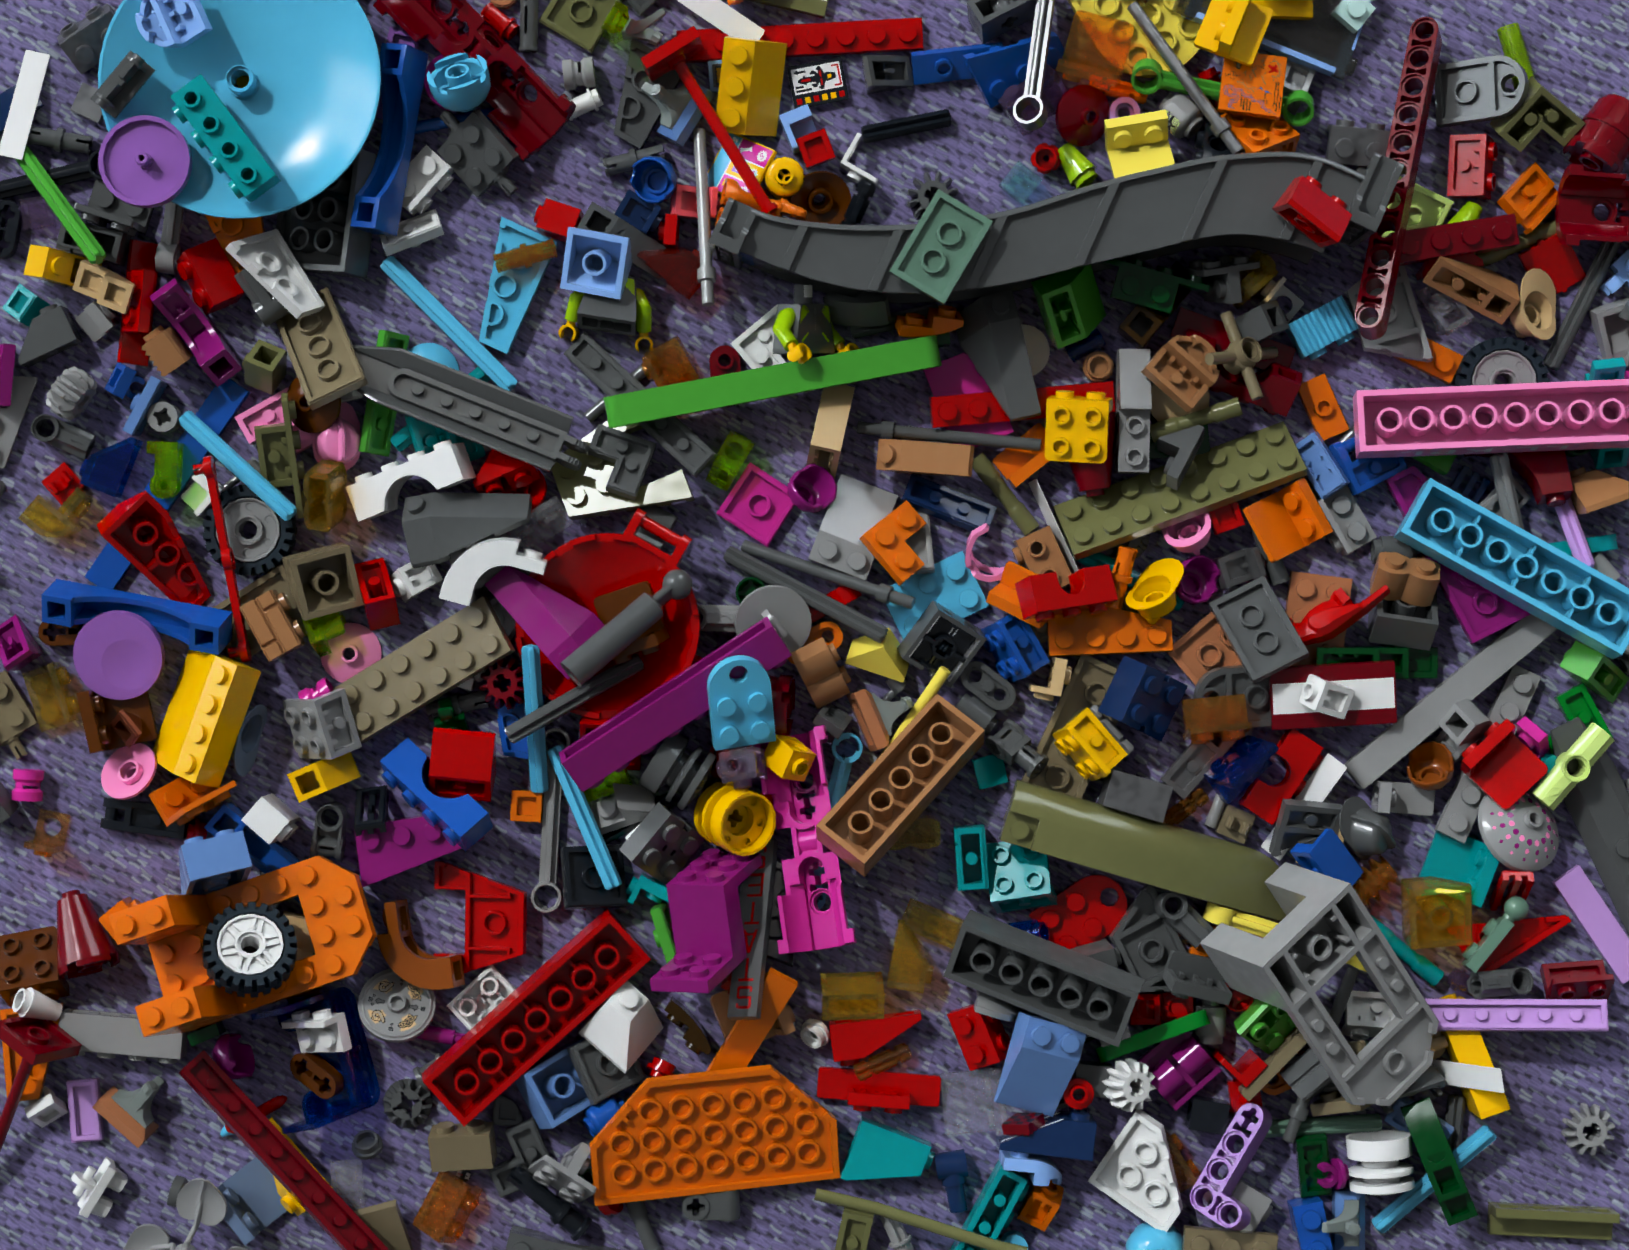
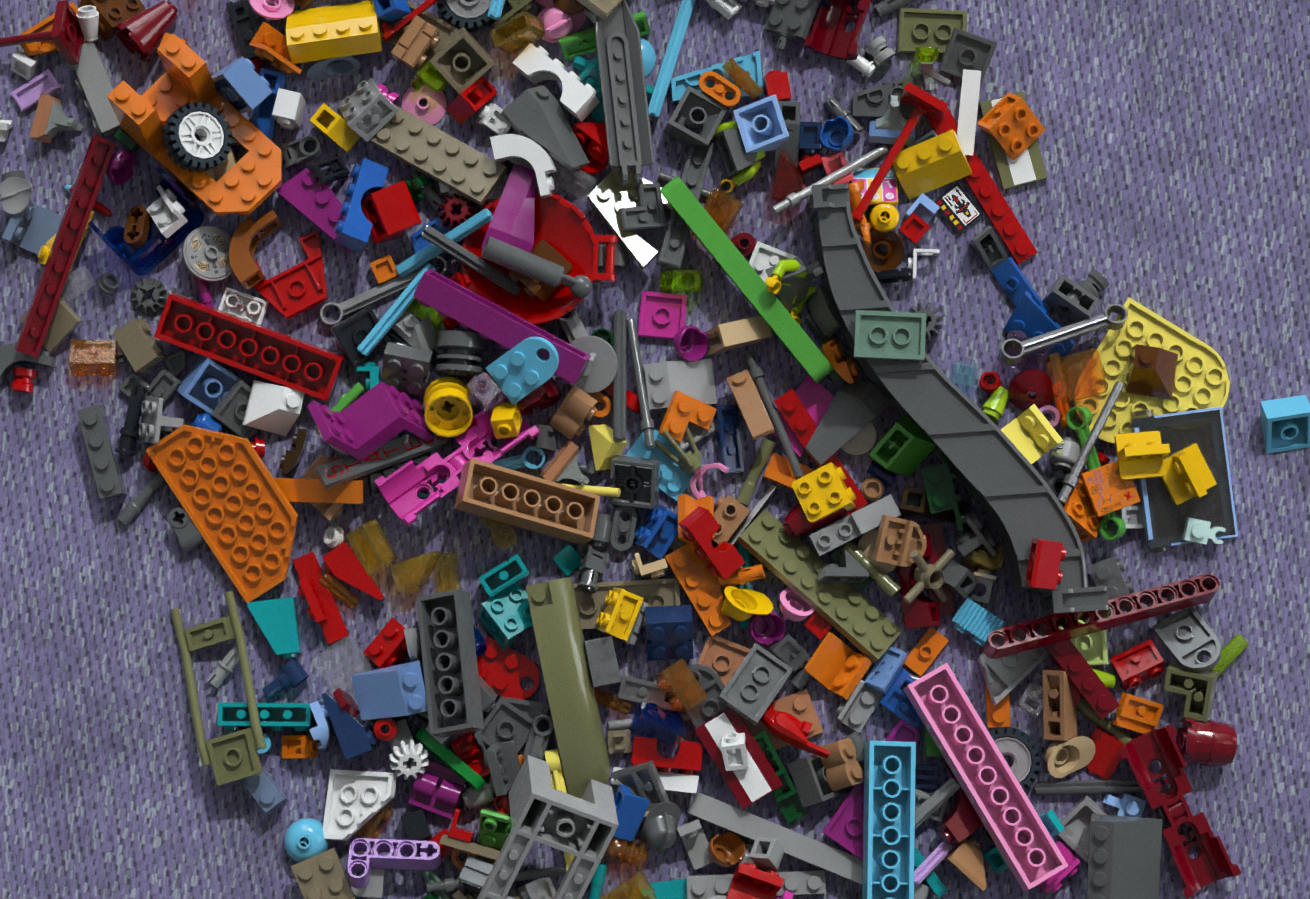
camera: 70 degrees right, 5 degrees down
(523, 288) = (720, 89): none -> orange plate
(543, 338) = (695, 118): none -> dark grey slope
(906, 126) = (961, 280): black axle -> none
(950, 567) = (689, 460): none -> olive plant

